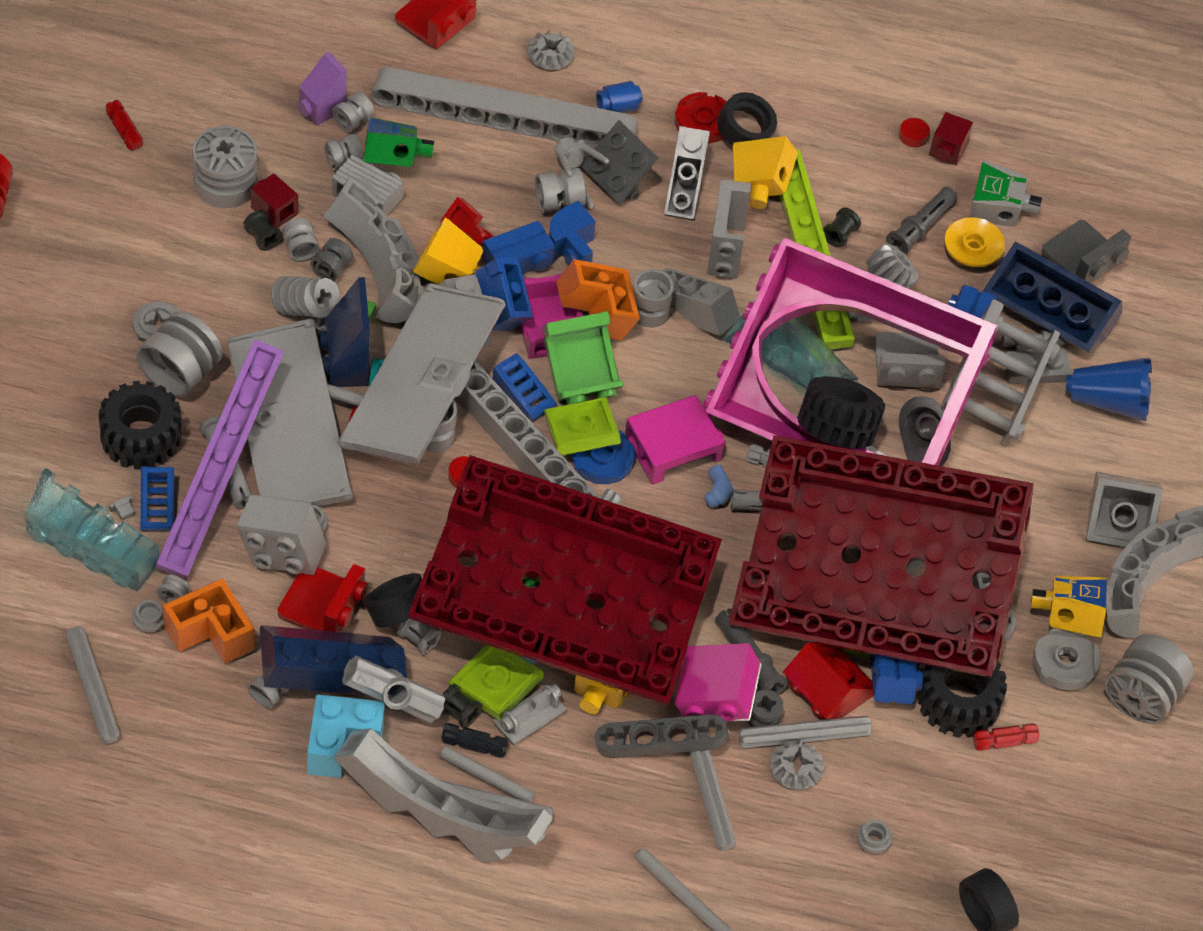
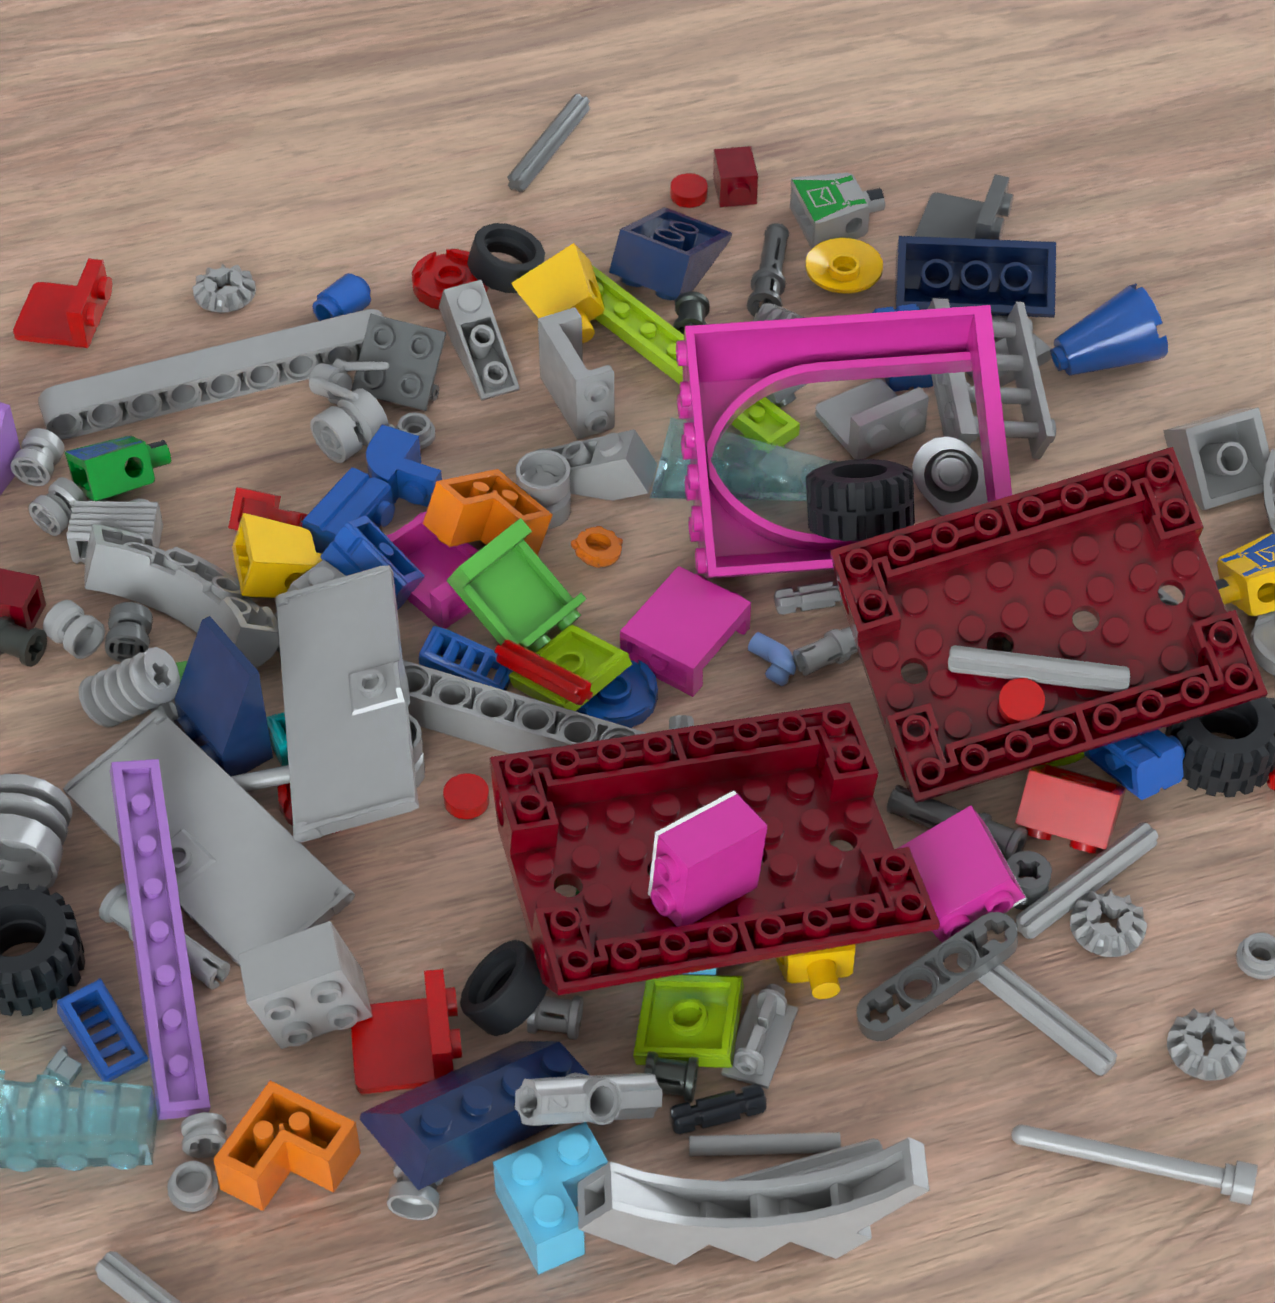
camera: 25 degrees left, 5 degrees down
(548, 586) = (706, 859): none -> dark pink piece
(559, 419) = (543, 672): none -> red axle
(604, 215) = (418, 425): none -> light grey plate
(661, 354) = (597, 547): none -> orange animal
(798, 881) = (1186, 1045): none -> light grey gear
(835, 596) = (1021, 700): none -> red tile
(844, 48) = (548, 143): none -> axle
(859, 582) = (1038, 668): none -> light grey axle
(862, 171) = (667, 252): none -> dark blue slope

